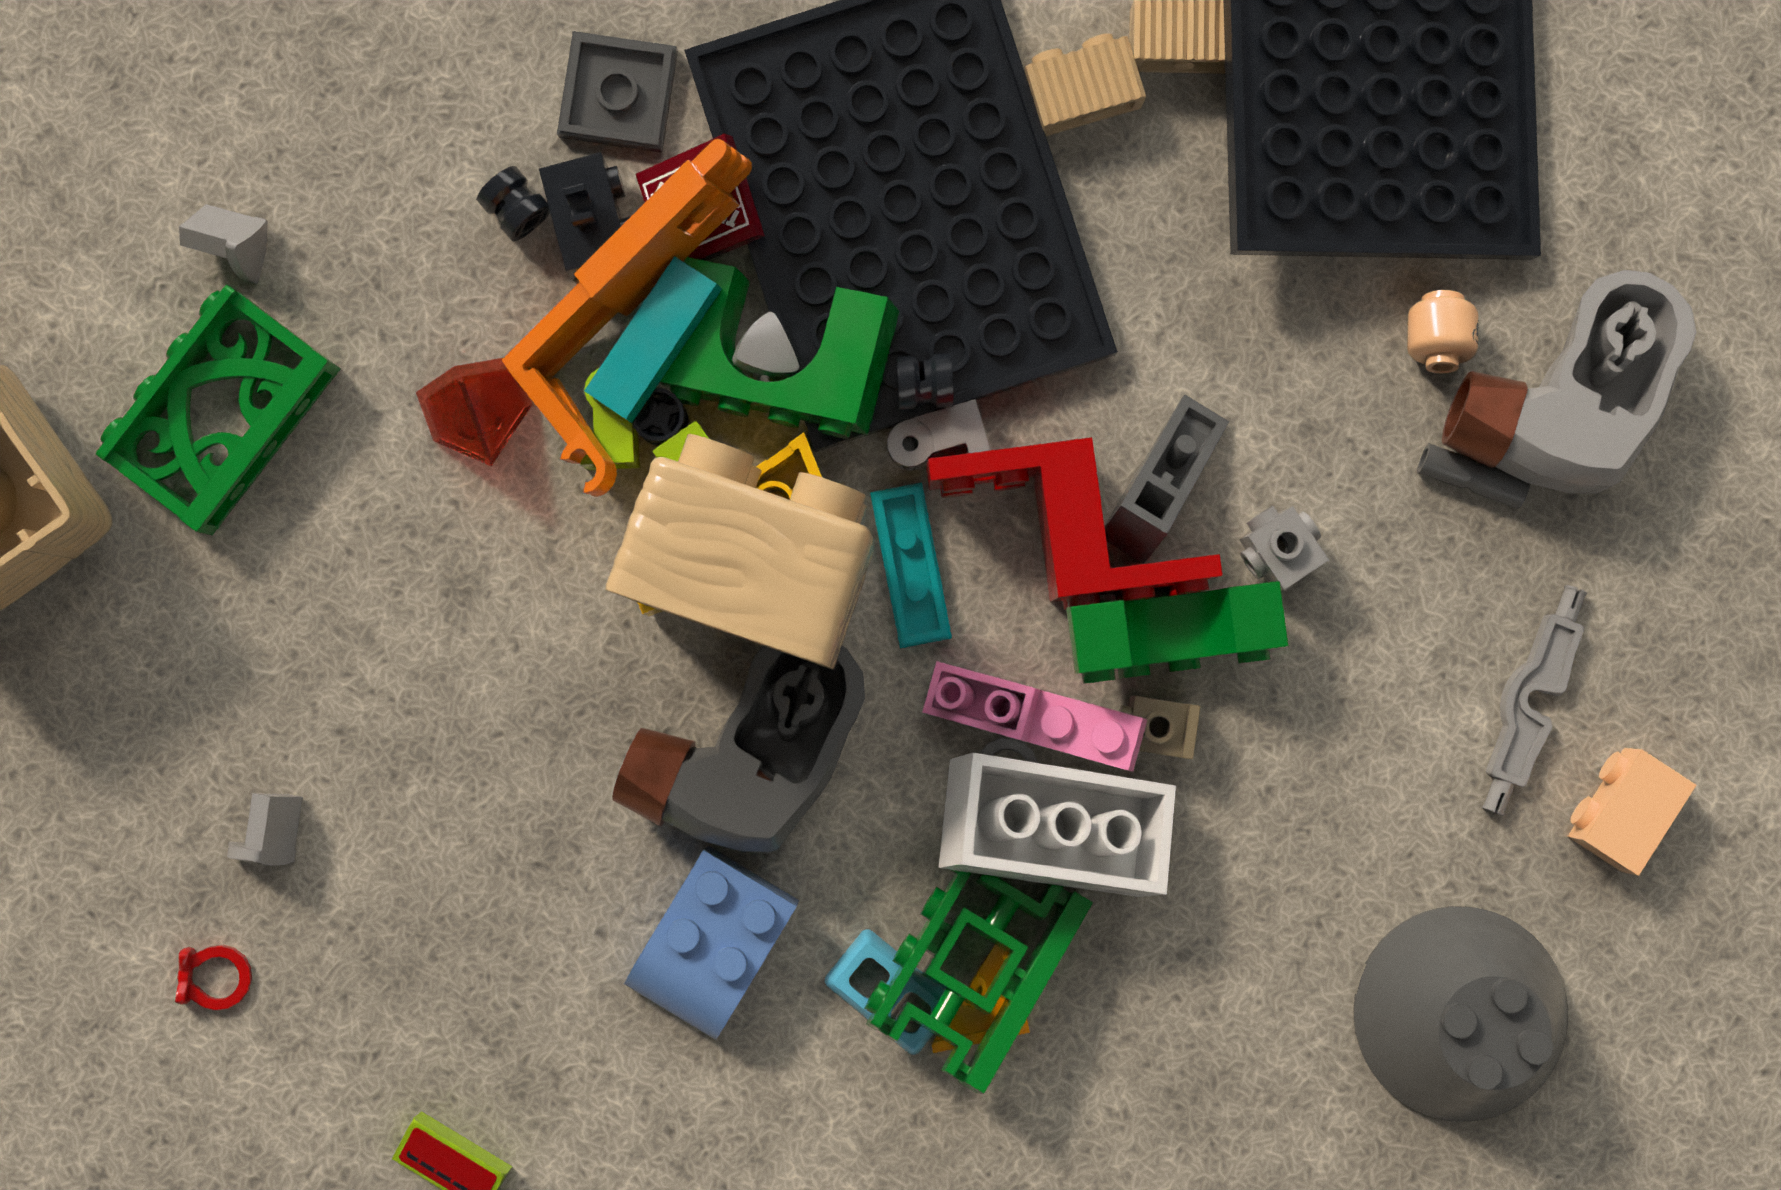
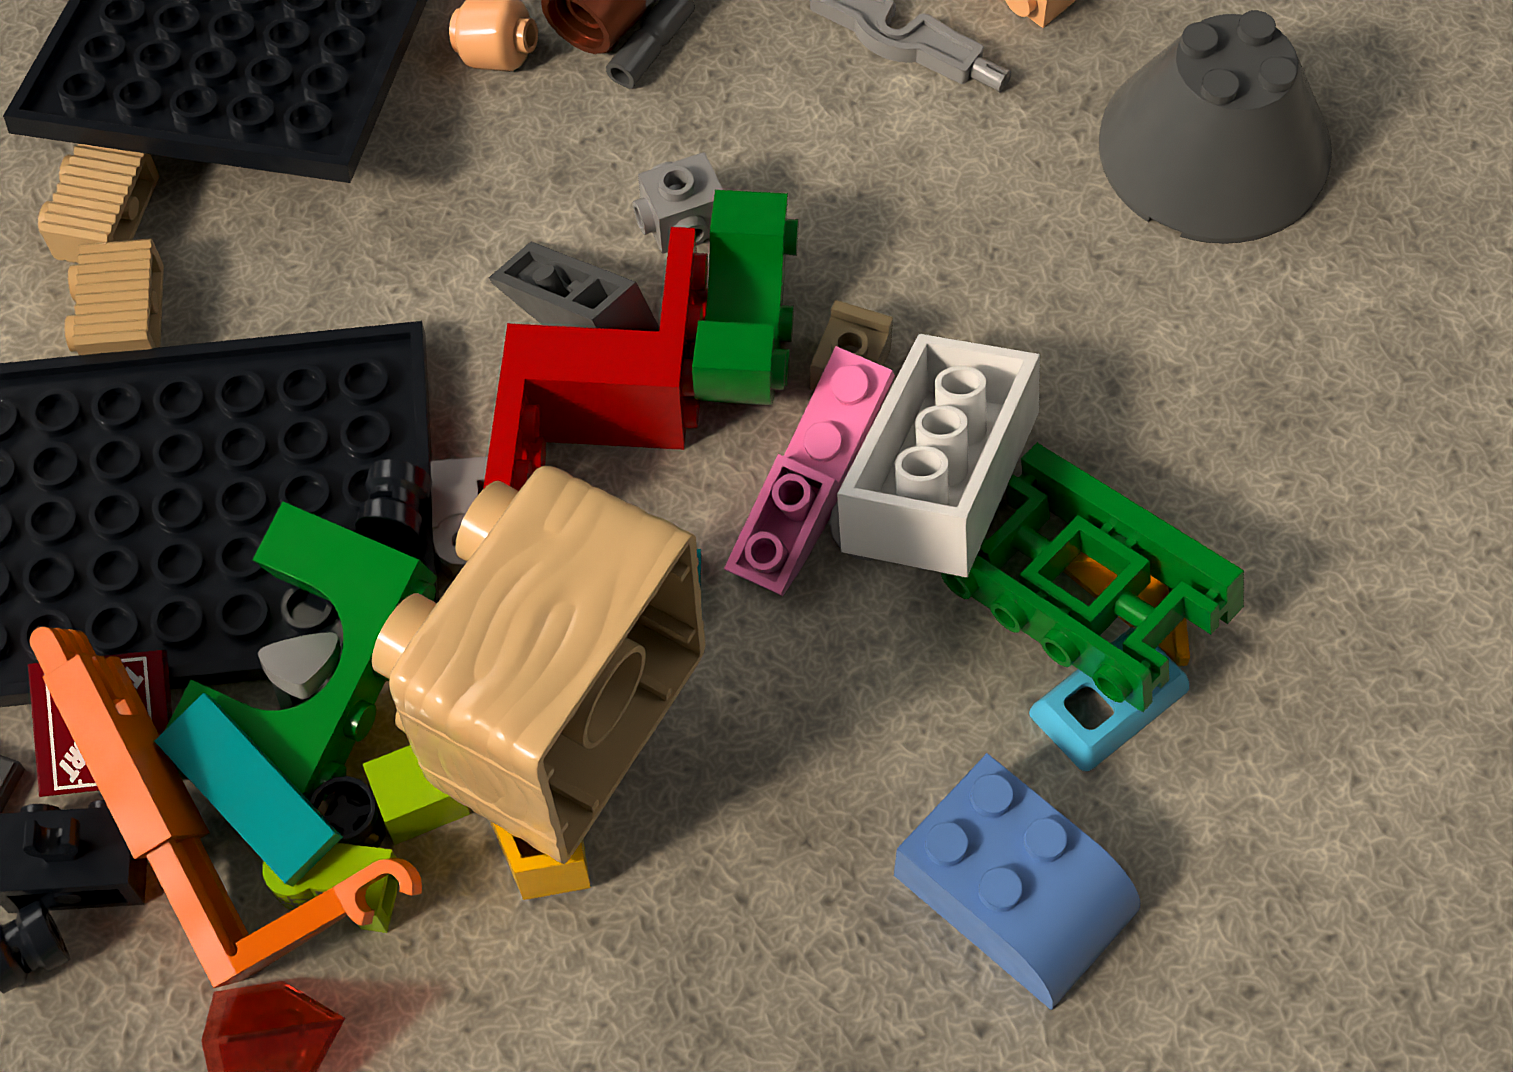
camera: 75 degrees left, 25 degrees down
(766, 761) = (806, 767): dark grey piece -> none

